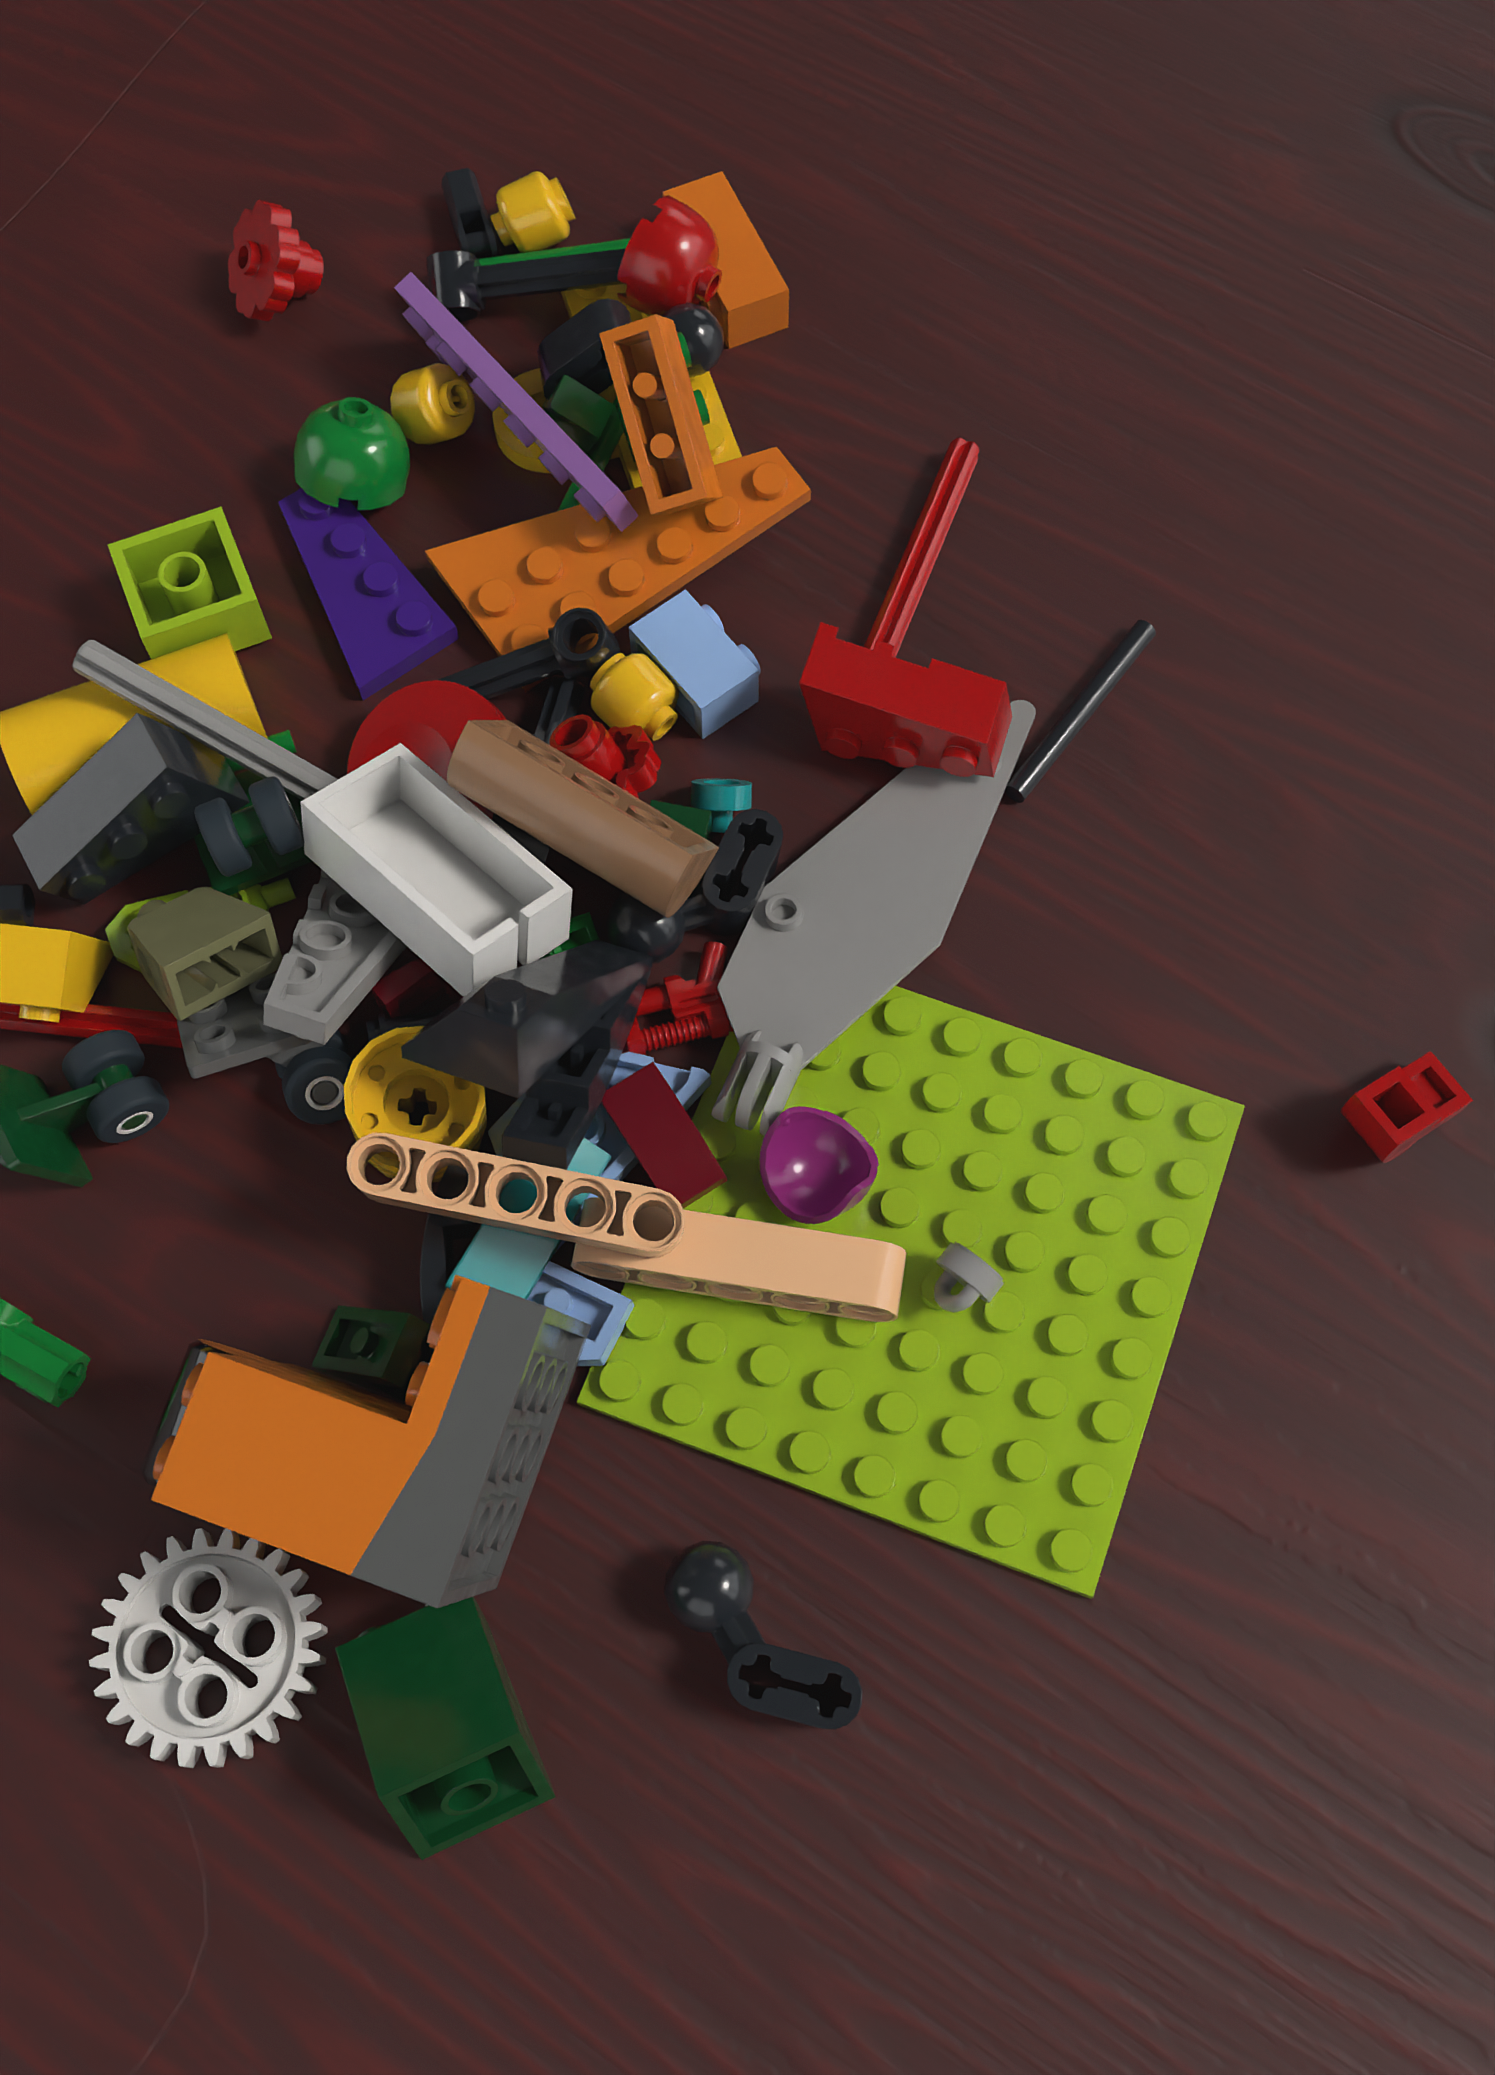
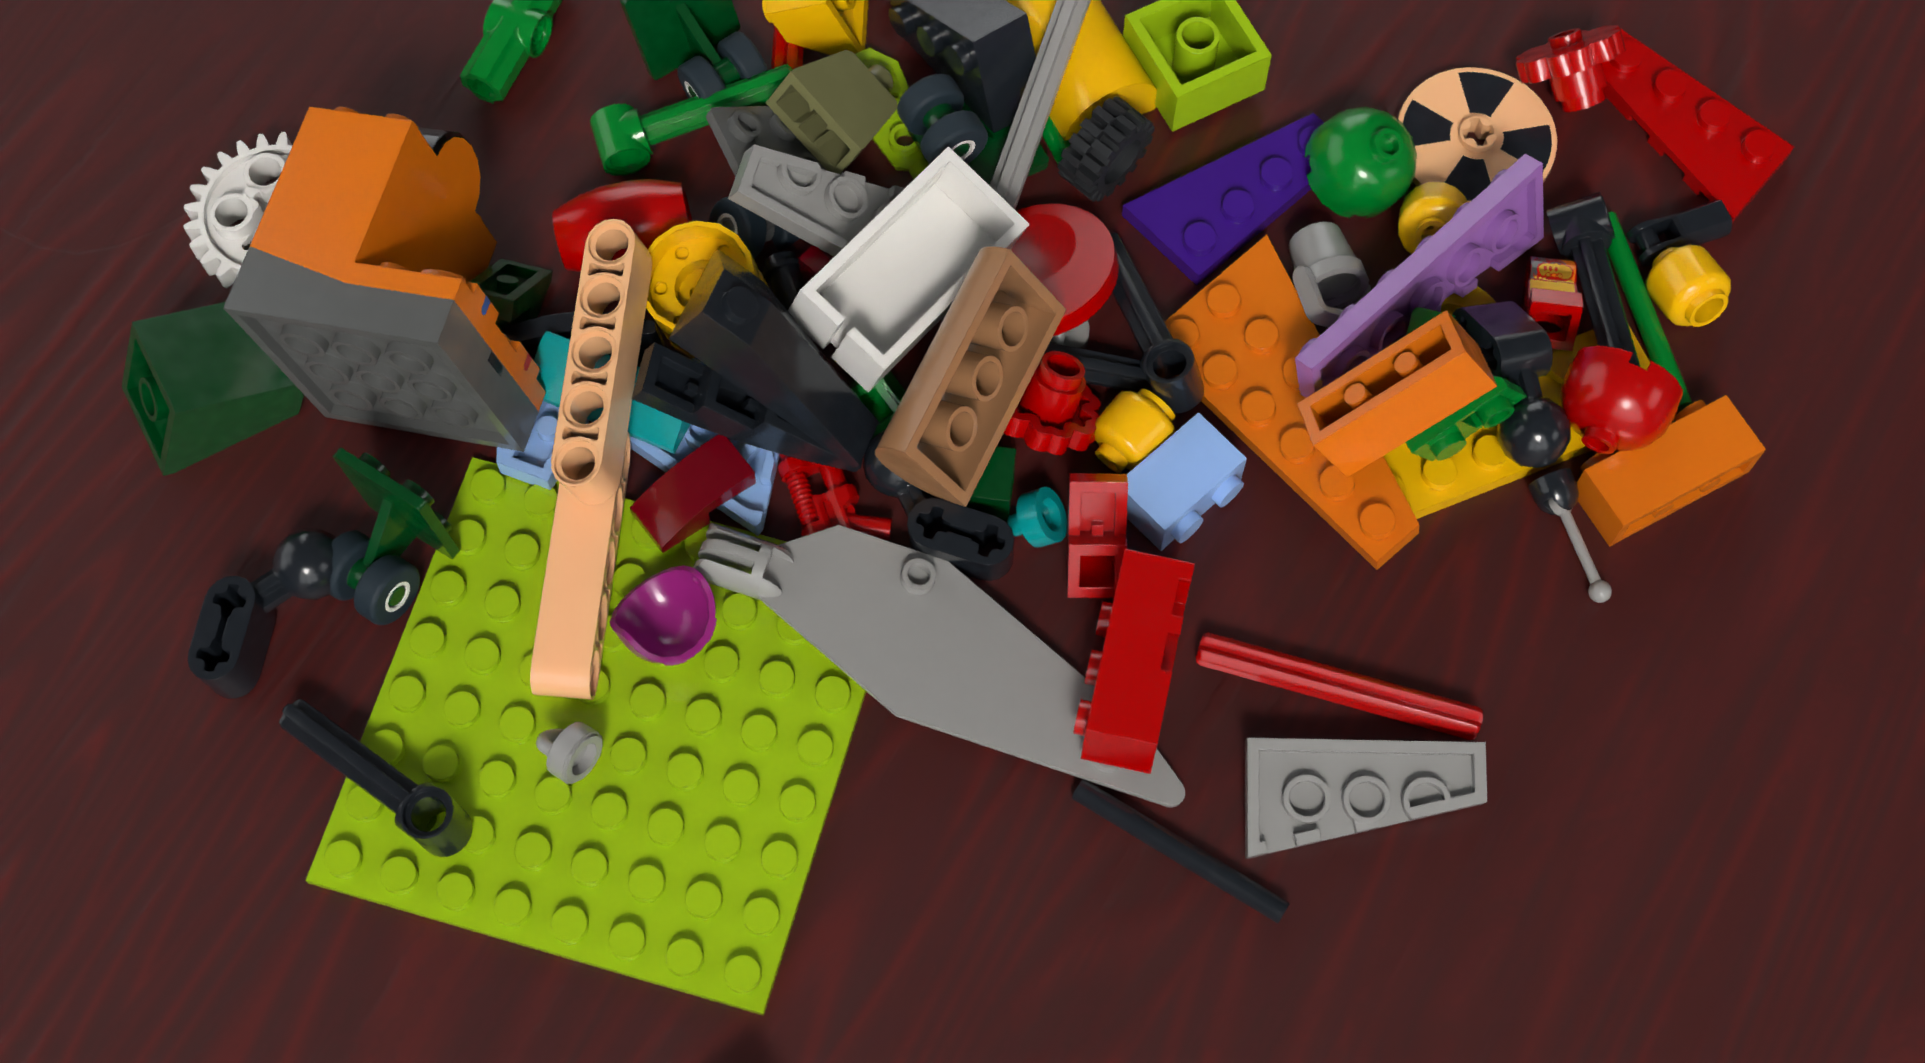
camera: 85 degrees right, 0 degrees up
(175, 1202) = (627, 137): none -> green axle
(297, 685) = (1106, 149): none -> black tyre
(298, 348) = (1480, 102): none -> piece
(305, 1204) = (643, 204): none -> red piece
(364, 181) = (1705, 135): none -> red wing
(475, 501) = (1326, 272): none -> light grey piece
(523, 320) = (1553, 297): none -> red leg
(742, 351) = (1557, 495): none -> hinge
(742, 1497) = (372, 566): none -> plate
(754, 744) = (1095, 533): none -> red brick
(980, 1506) = (410, 802): none -> black axle
(1025, 556) = (1338, 787): none -> light grey wing

